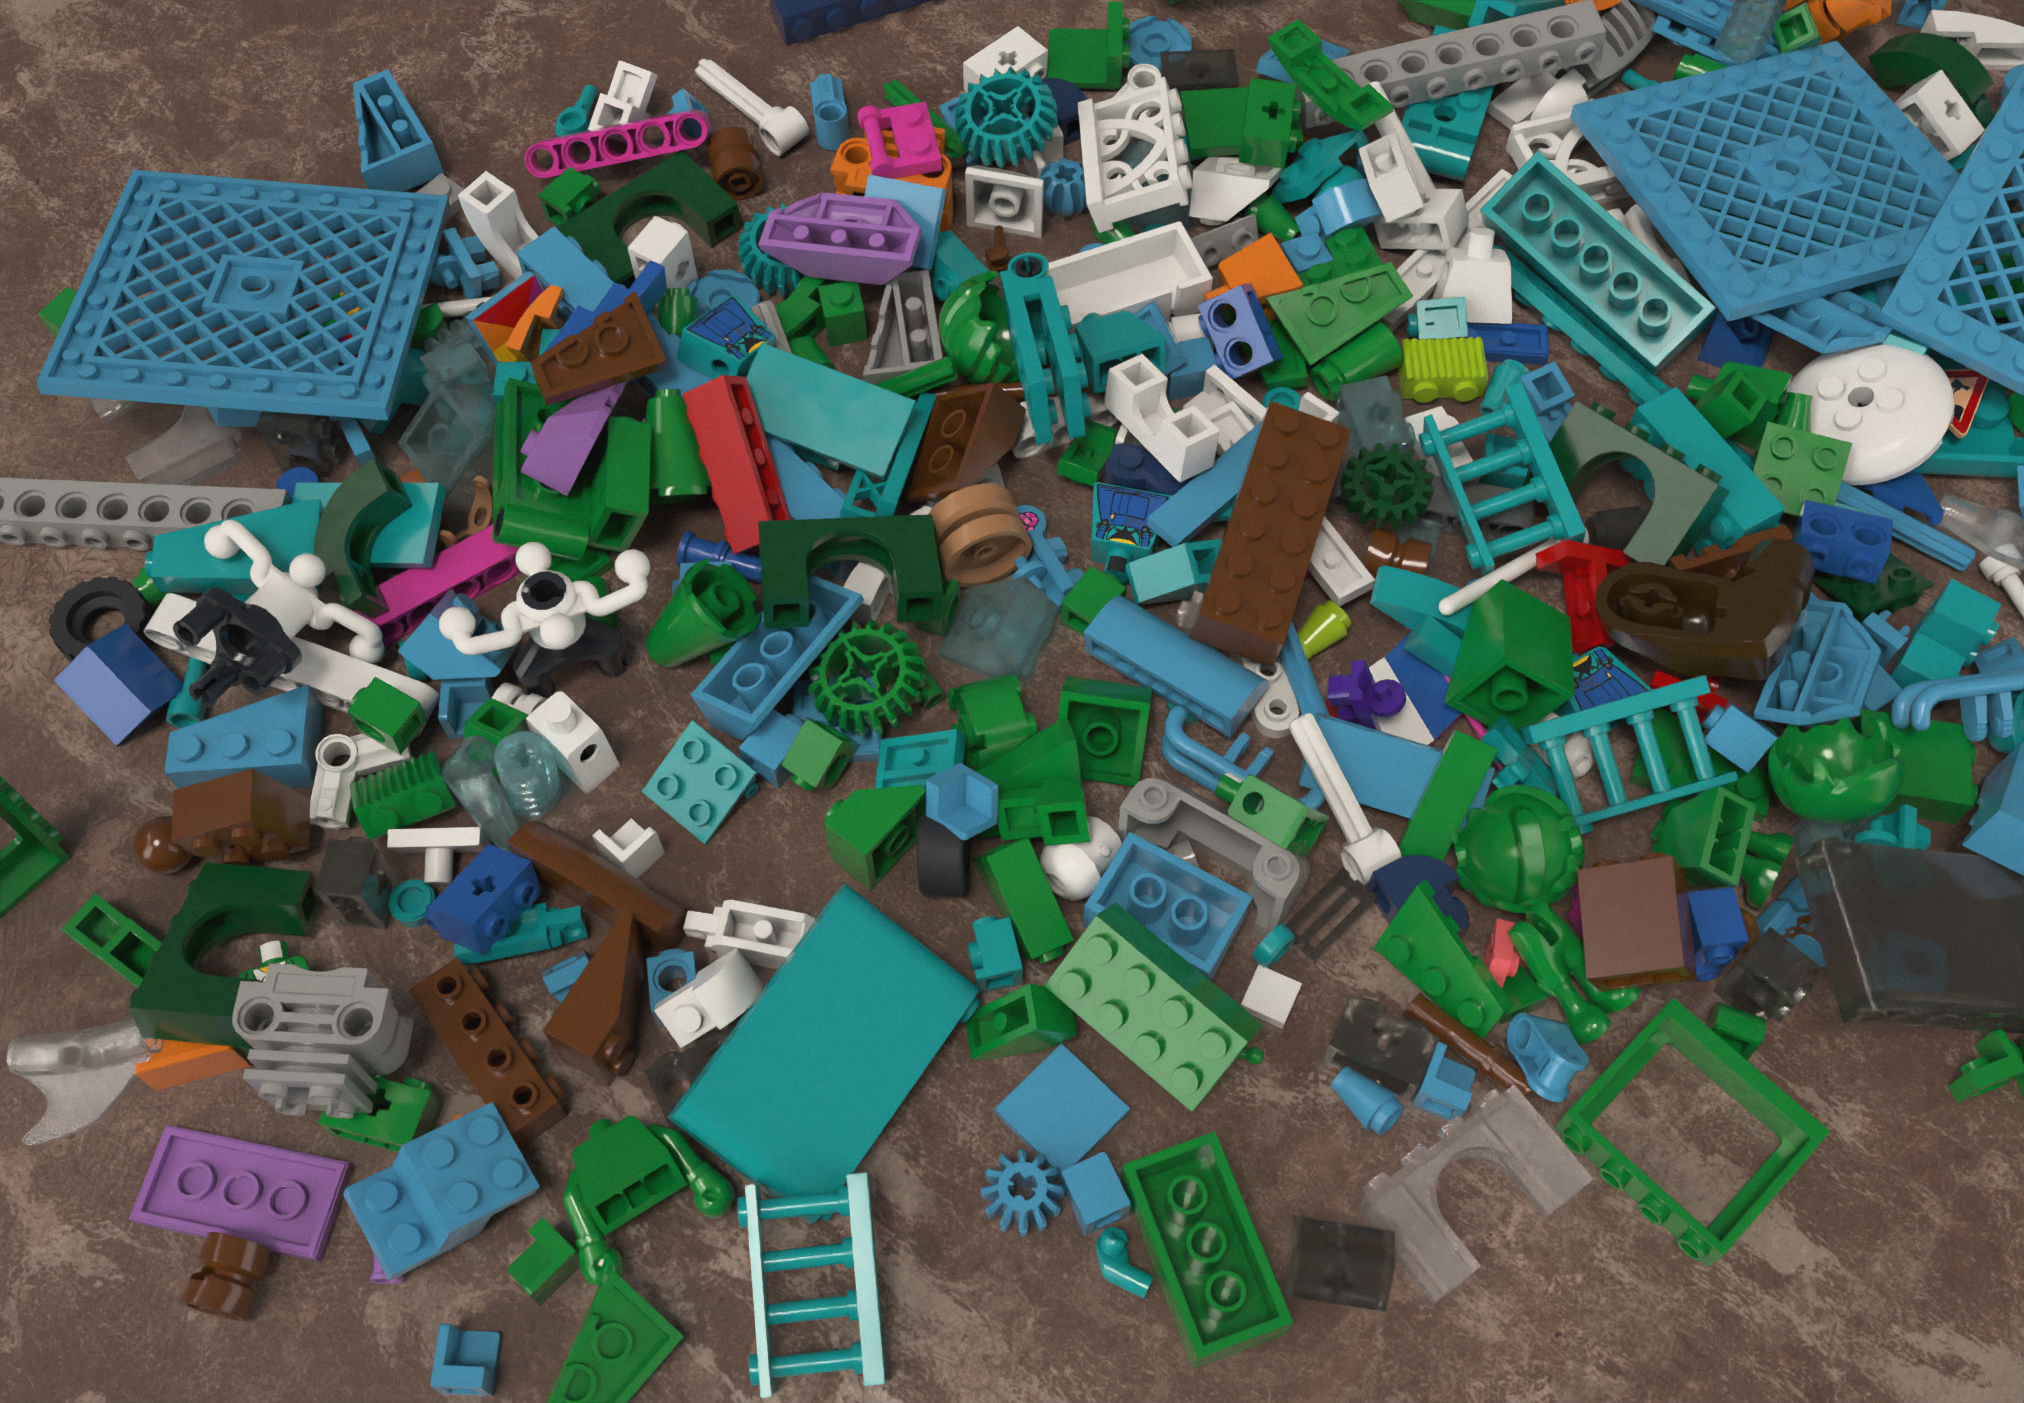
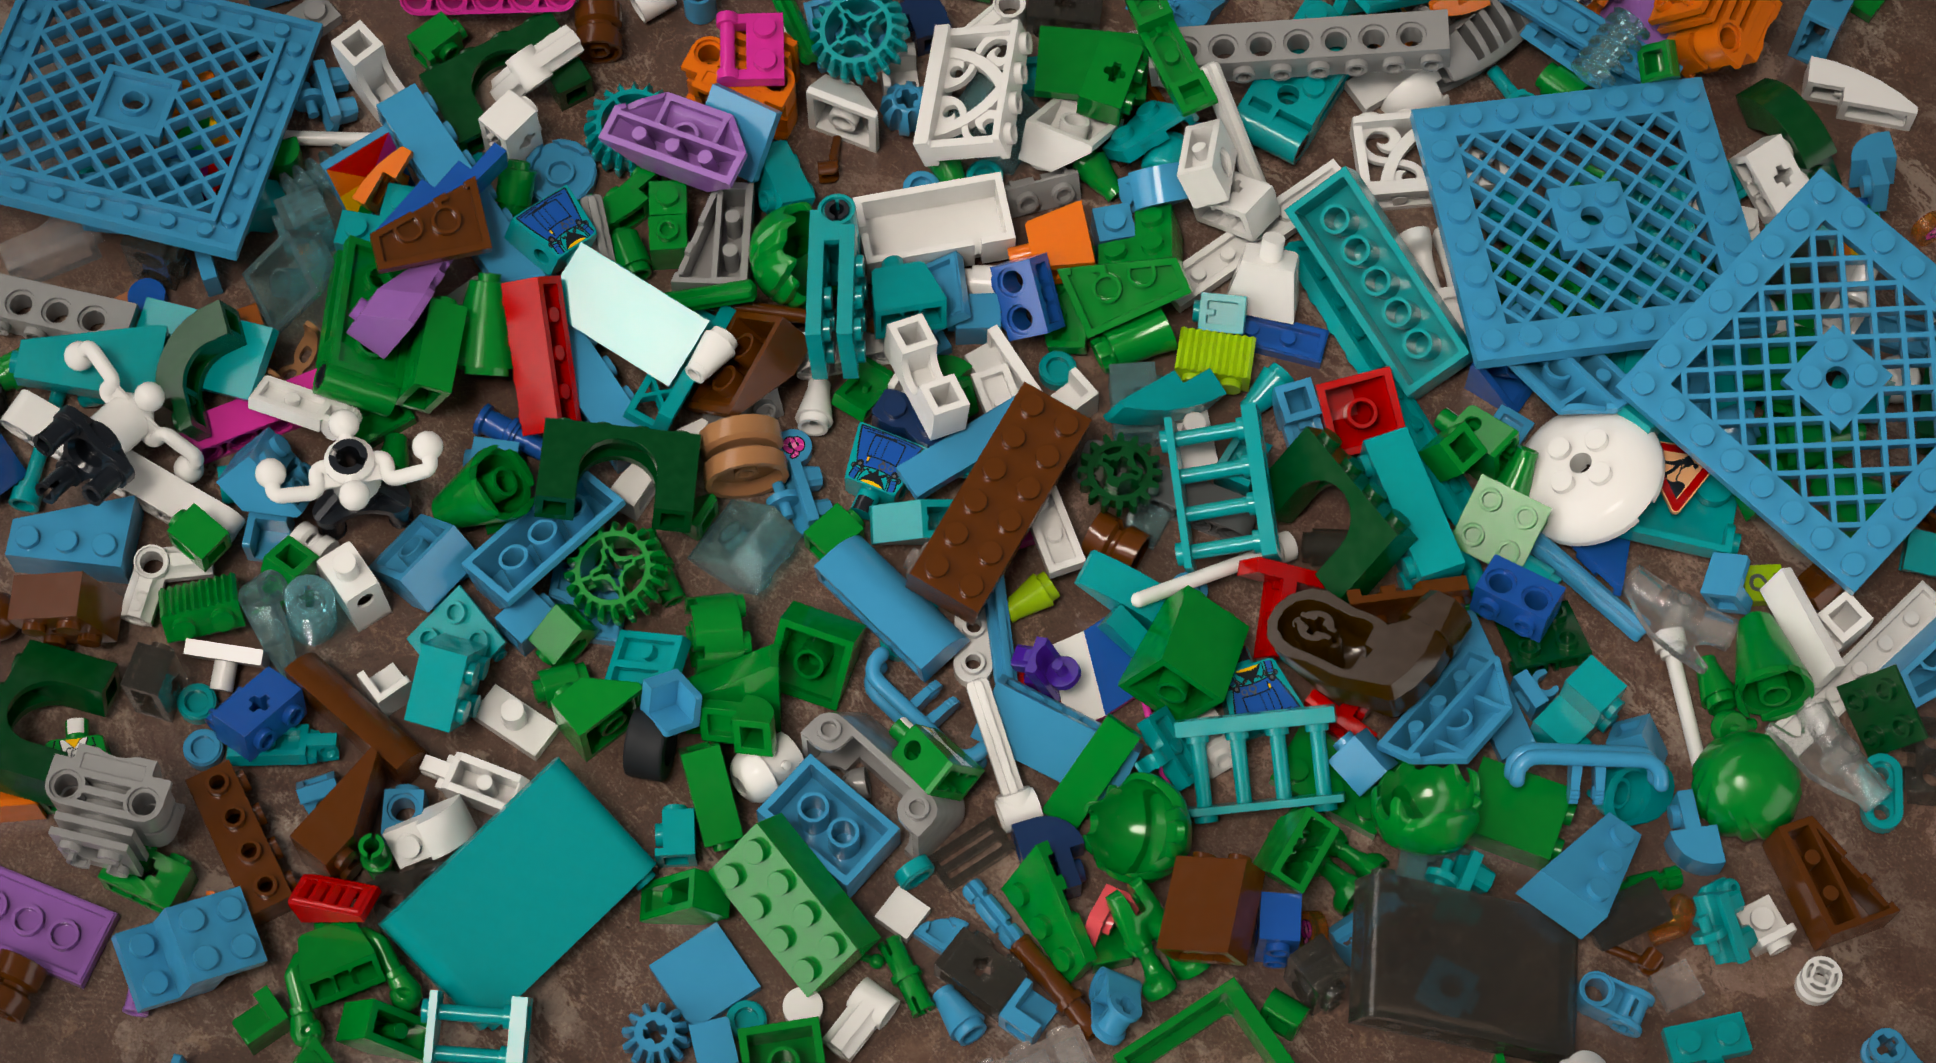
camera: 10 degrees right, 5 degrees up
(426, 952) = (203, 749): none -> dark azure tile
(473, 560) = (296, 405): none -> white hinge
(603, 1098) = (329, 899): none -> red slope
(649, 705) = (424, 562): none -> dark azure slope
(649, 1036) = (375, 855): none -> green pin
(678, 194) = (537, 63): none -> white piece
(693, 1246) = (382, 1030): none -> green slope
(698, 826) = (447, 682): none -> teal brick
(782, 860) = (516, 722): none -> white tile
(815, 805) = (552, 678): none -> green brick
(848, 342) = (667, 240): none -> green brick
(923, 434) = (711, 353): none -> white cone
(1041, 482) = (815, 410): none -> white cone
(1122, 1147) = (745, 1014): none -> teal tile
(1181, 1124) = (798, 1006): none -> white tile
(1259, 1119) = (867, 1010): none -> white piece
(1295, 1066) = (906, 976): none -> green pin
(1320, 1011) = (939, 932): none -> dark azure tile
(1372, 977) = (992, 912): none -> dark azure axle
(1407, 406) = (1167, 399): none -> teal slope
(1615, 379) = (1360, 407): none -> red slope

